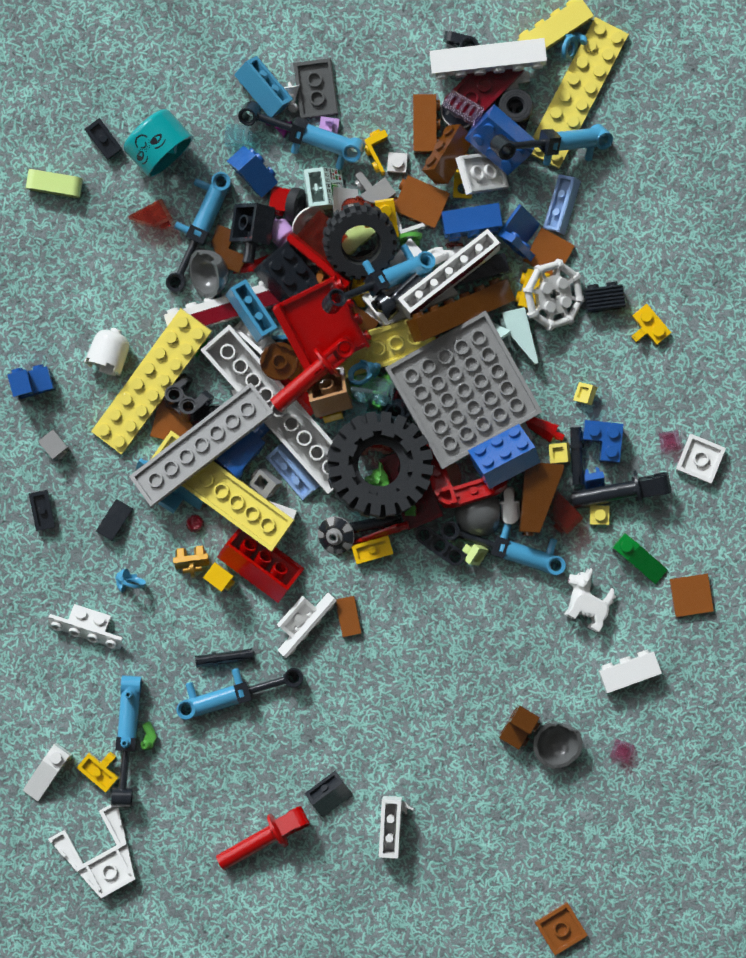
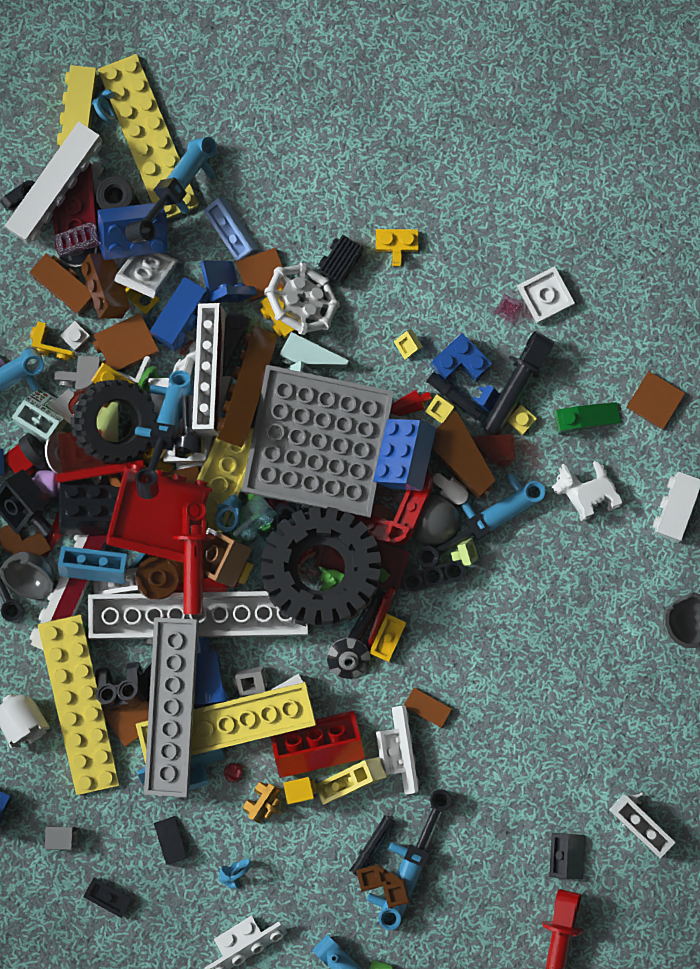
camera: 50 degrees left, 5 degrees down
(209, 693) = (393, 886): none -> reddish brown tile
(255, 606) = (351, 780): none -> light yellow slope
(292, 471) = (261, 649): light blue slope -> none
(519, 726) = (646, 640): reddish brown brick -> none

